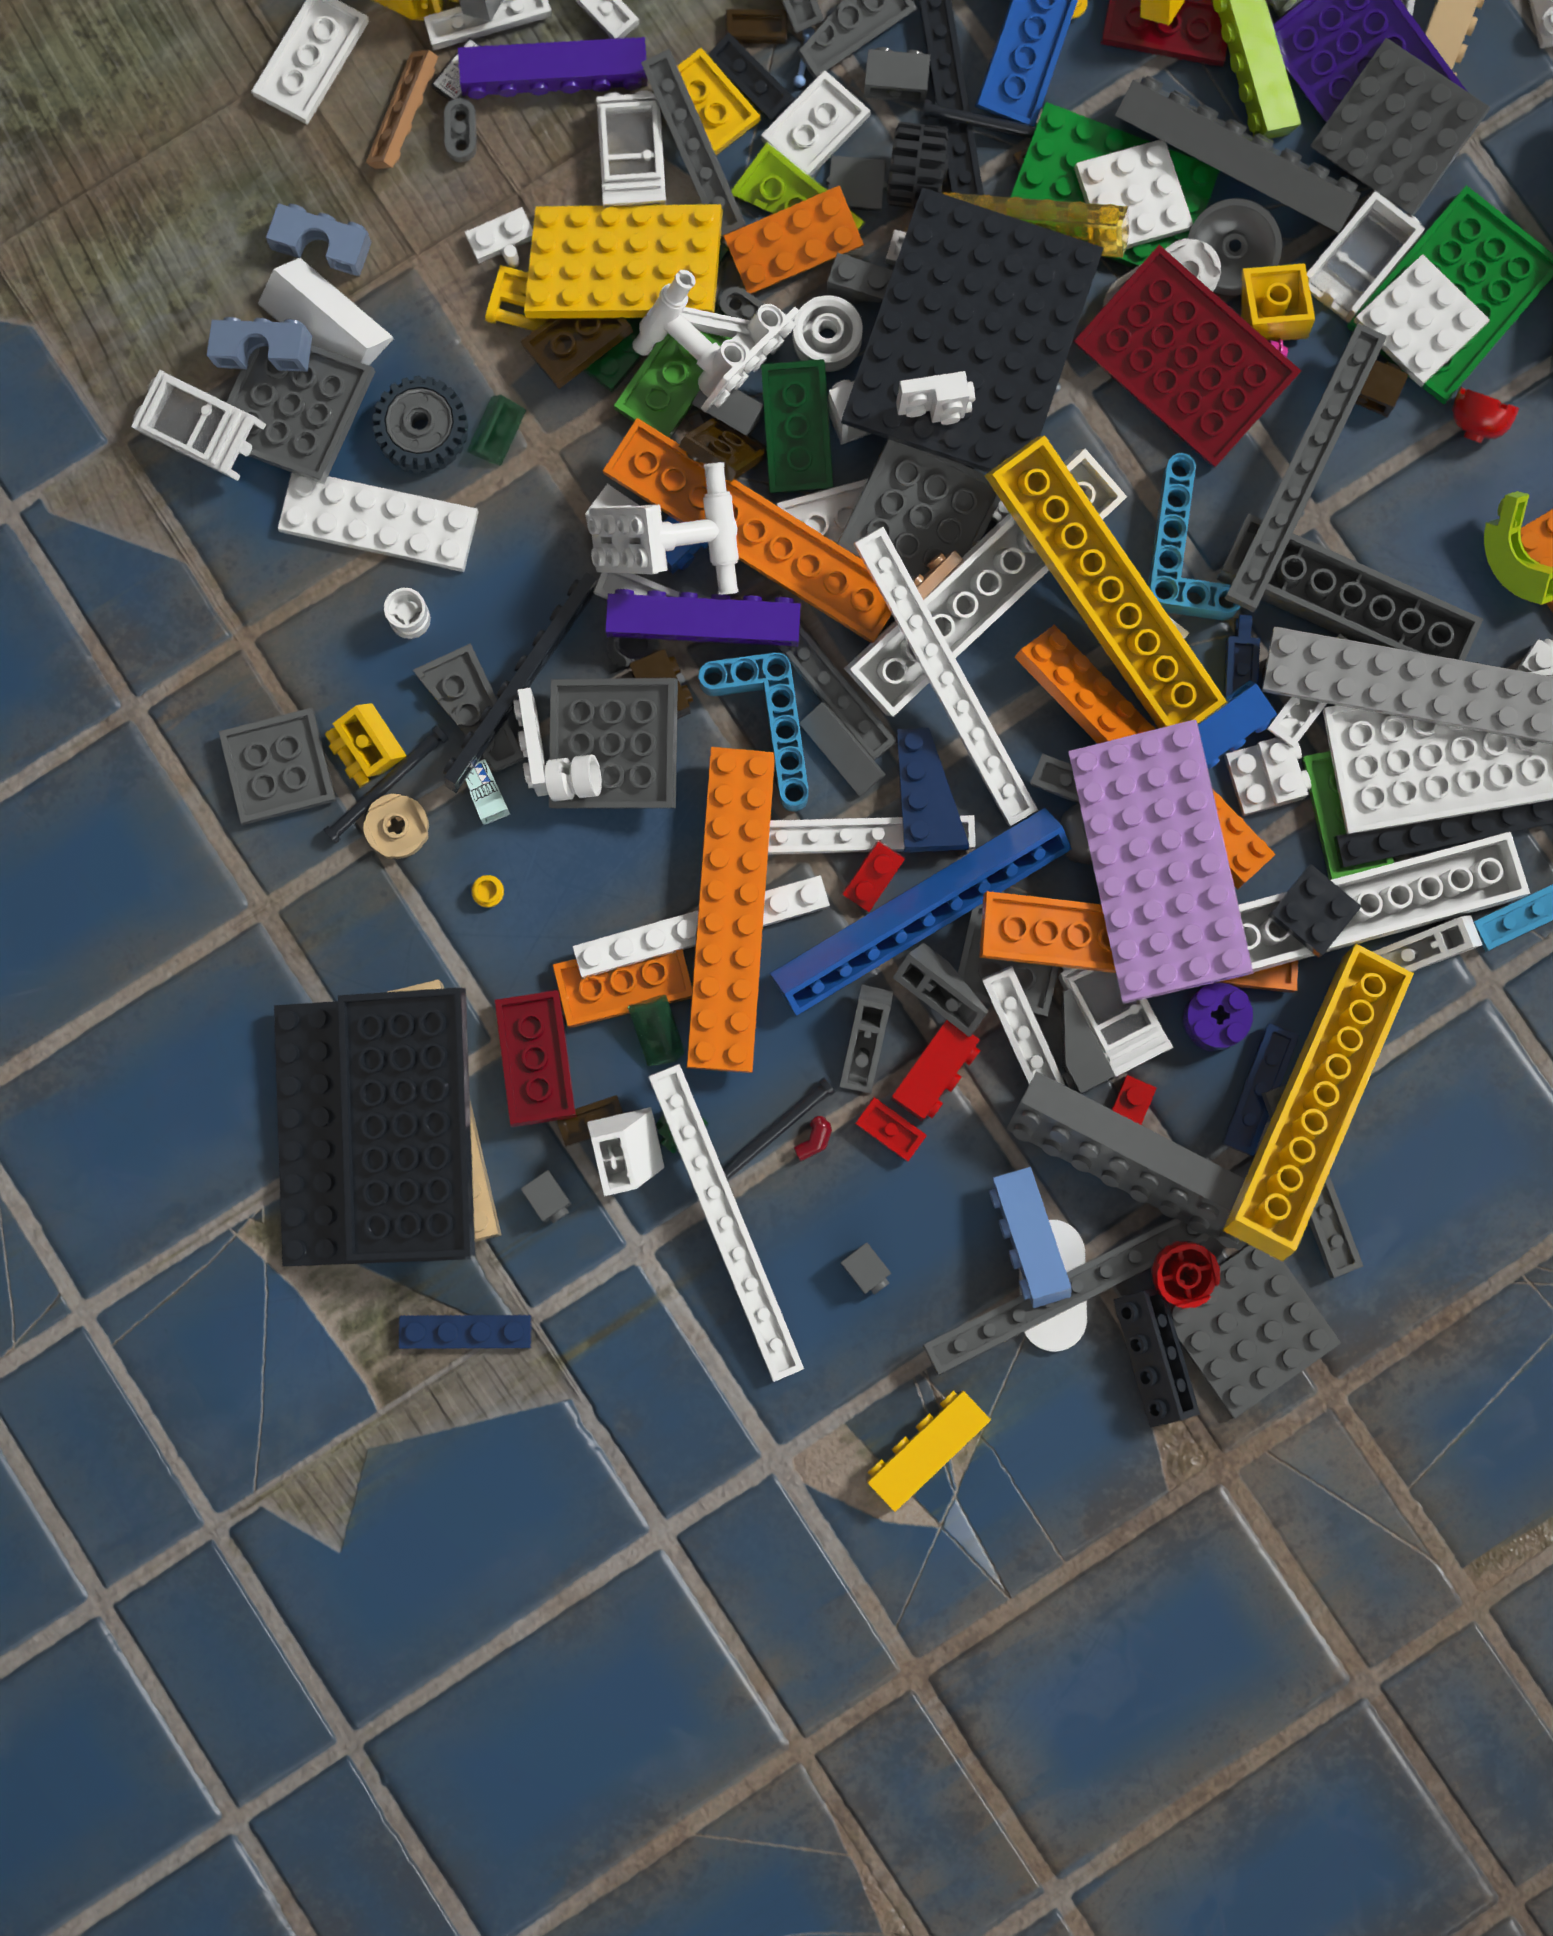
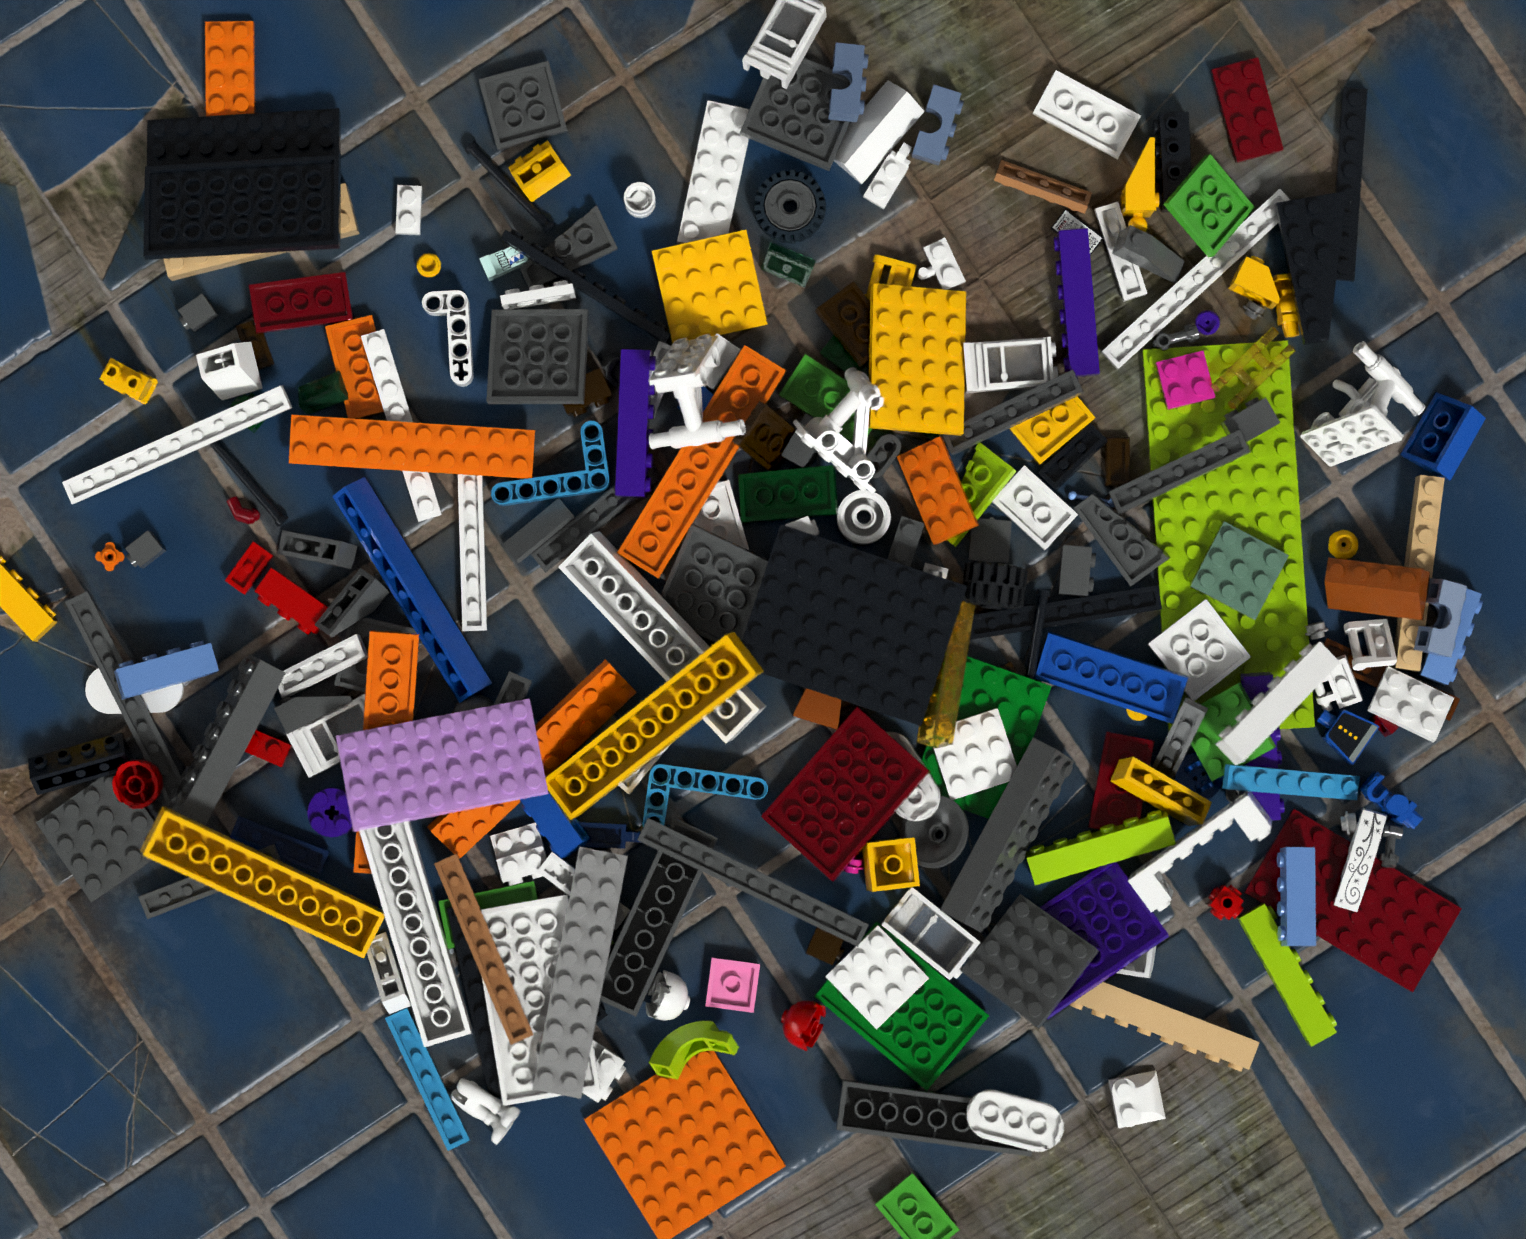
camera: 85 degrees right, 5 degrees up
(215, 1155) = (230, 67): none -> orange plate
(379, 819) = (472, 208): tan plate -> none
(384, 302) = (888, 177): none -> white hinge
(413, 917) = (408, 210): none -> white plate
(460, 131) = (1027, 232): dark grey plate -> none
(465, 1331) = (100, 255): dark blue plate -> none
(523, 526) = (709, 286): none -> yellow plate
(571, 778) = (508, 324): white wheel -> none
(585, 857) = (454, 338): none -> white beam
(637, 1288) = (128, 381): none -> yellow hips
(865, 1317) = (116, 556): none -> orange plate
(873, 876) = (440, 554): red plate -> none
(927, 803) = (493, 594): dark blue wing -> none
(940, 568) = (657, 588): medium nougat plate -> none
(943, 395) = (788, 600): white plate -> none
(945, 676) = (586, 605): white plate -> none
(1075, 393) = (819, 709): none -> dark orange torso
(1314, 911) = (404, 880): black plate -> none
(1401, 811) = (484, 949): none -> medium nougat plate
(1433, 505) = (732, 985): none -> bright pink plate
(1455, 582) = (668, 996): none -> white cylinder

